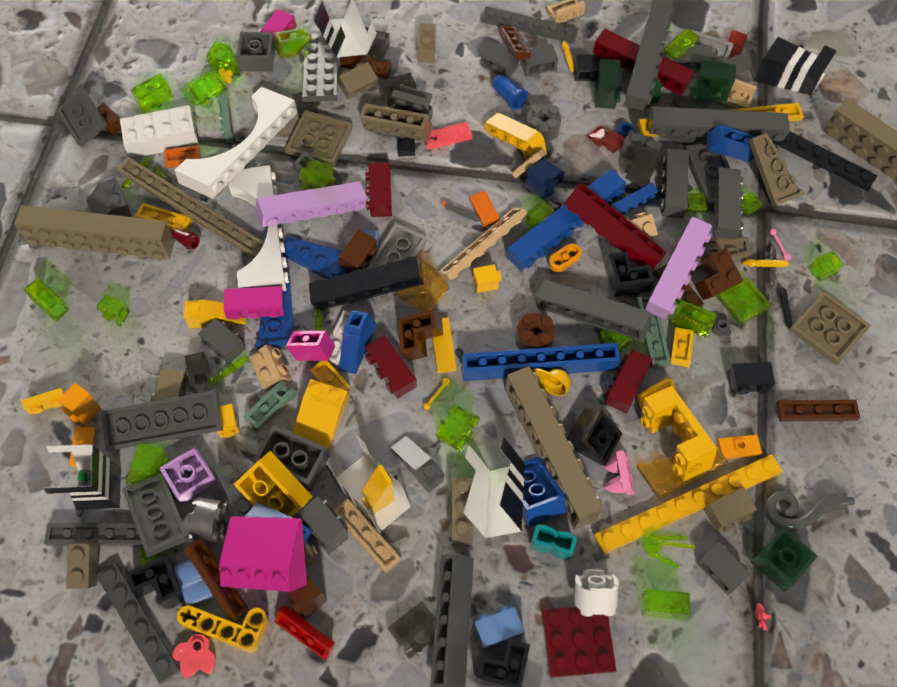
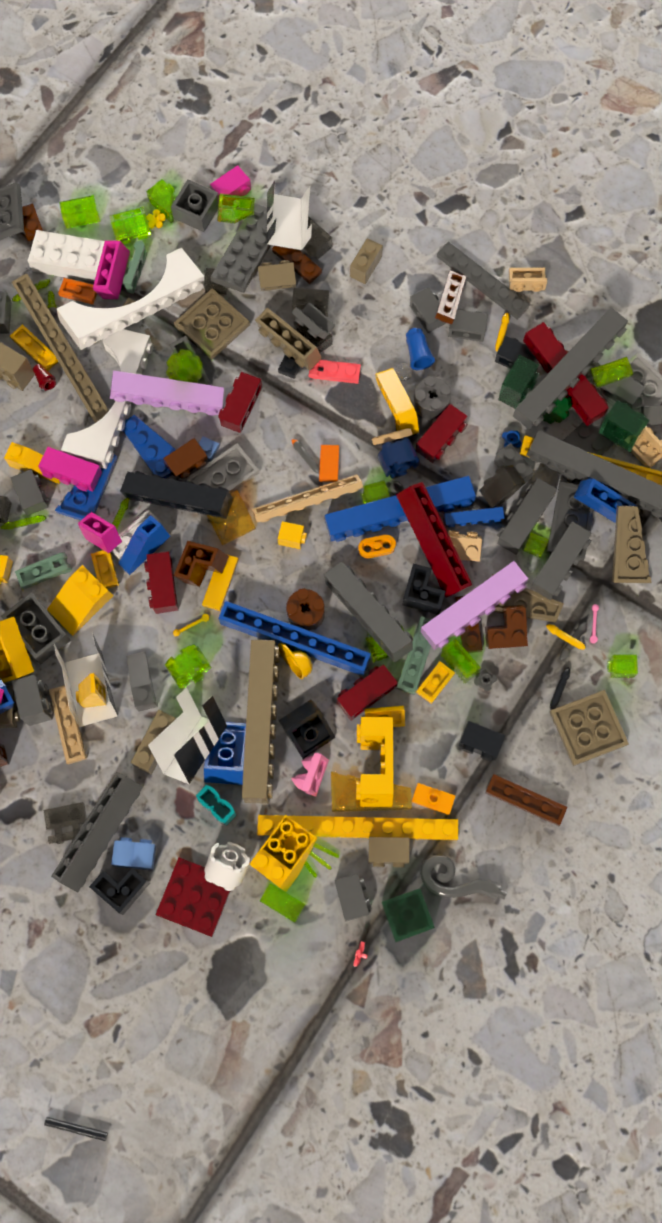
camera: 30 degrees right, 10 degrees up
(206, 127) = (111, 270): none -> dark pink brick
(269, 366) = (59, 535): tan bracket -> none
(568, 147) = (442, 433): none -> dark red brick
(607, 137) = (487, 439): clear red slope -> none
(642, 555) = (284, 853): none -> yellow slope
(744, 301) = (522, 665): clear neon green plate -> none
(751, 203) = (589, 569): clear neon green plate -> none

